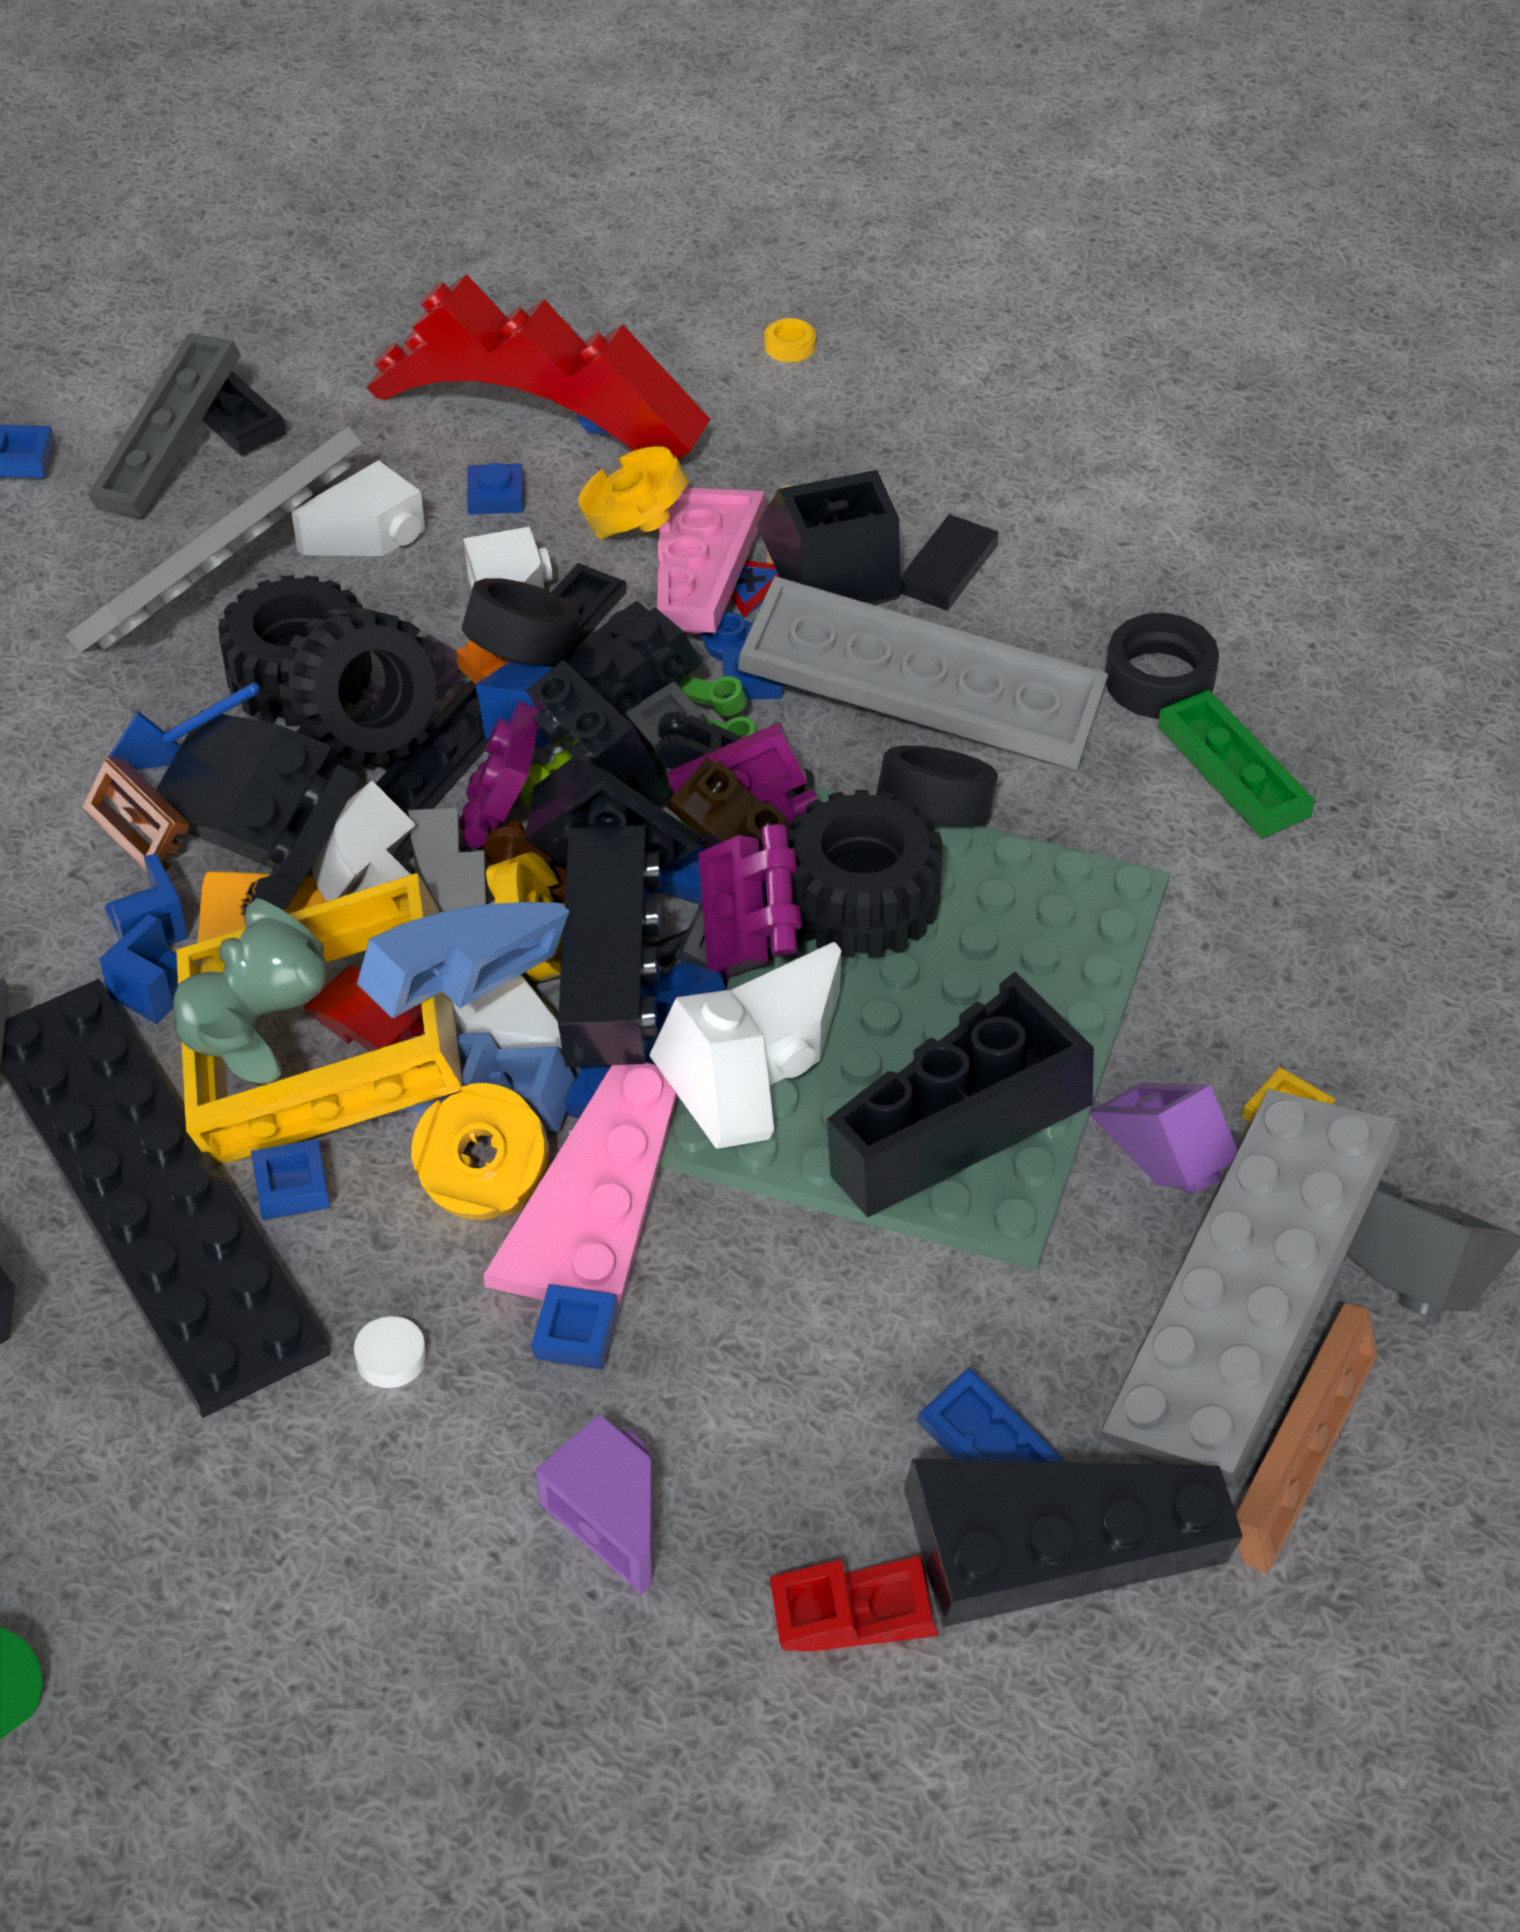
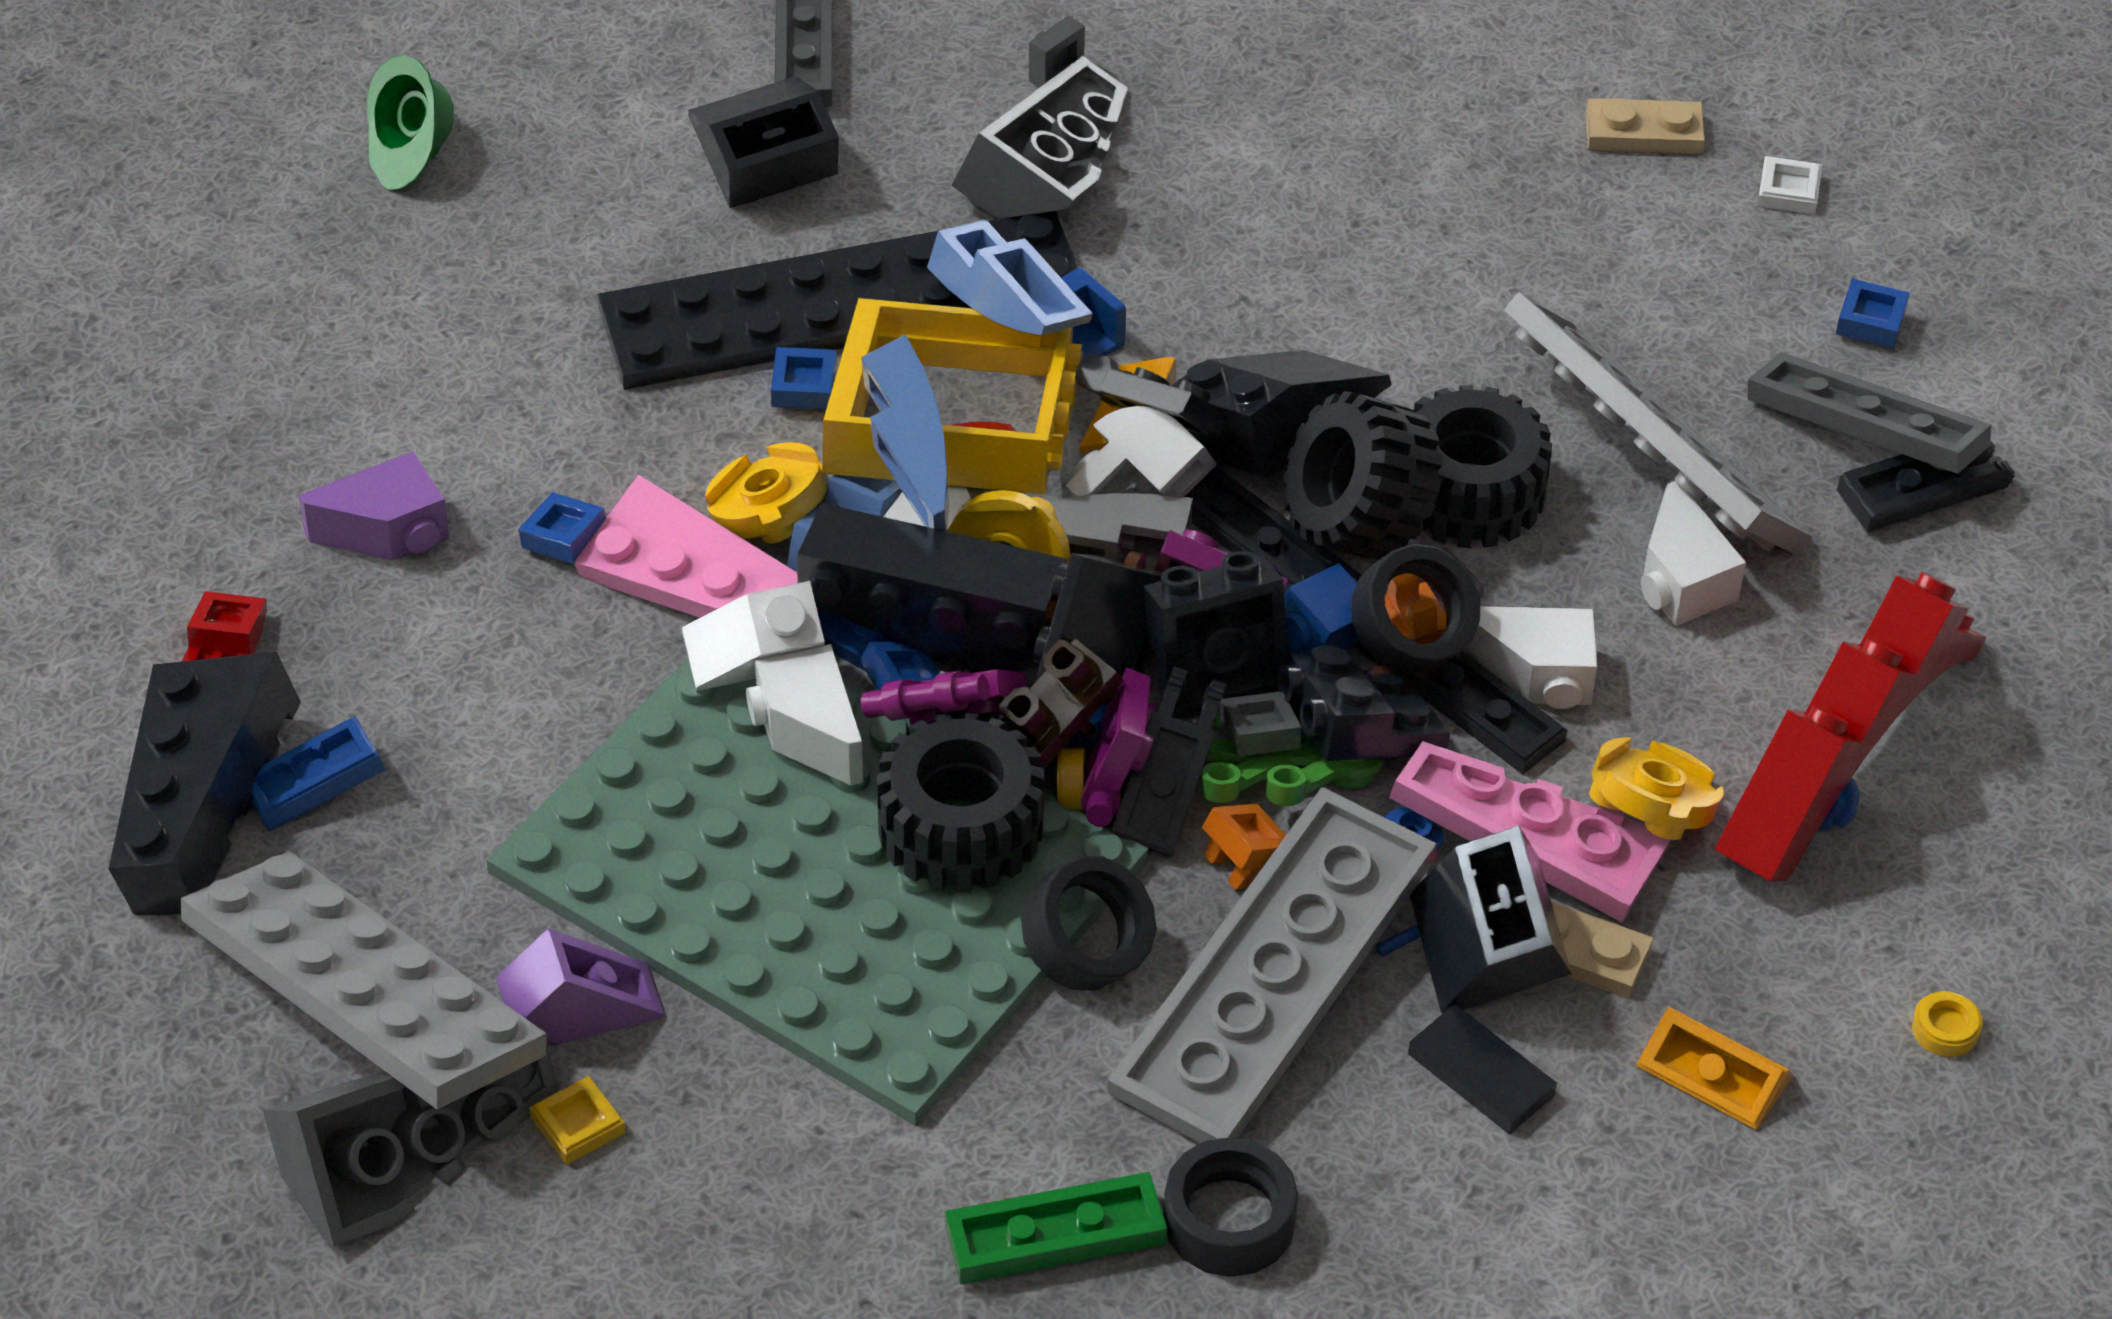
camera: 105 degrees right, 0 degrees up
(137, 804) = (1283, 329): dark orange tile -> none
(137, 1019) = (1005, 280): none -> medium blue slope
(148, 746) = (1369, 355): blue piece -> none
(158, 900) = (1161, 334): blue panel -> none
(264, 972) = (961, 320): sand green animal -> none
(390, 1351) = (602, 419): white tile -> none
(495, 488) = (1722, 689): blue plate -> none
(799, 711) = (1243, 836): none -> orange tile
(887, 442) = (1714, 1068): none -> light orange slope
(961, 1099) = (651, 817): black wedge -> none
(1306, 1437) = (206, 987): nougat tile -> none

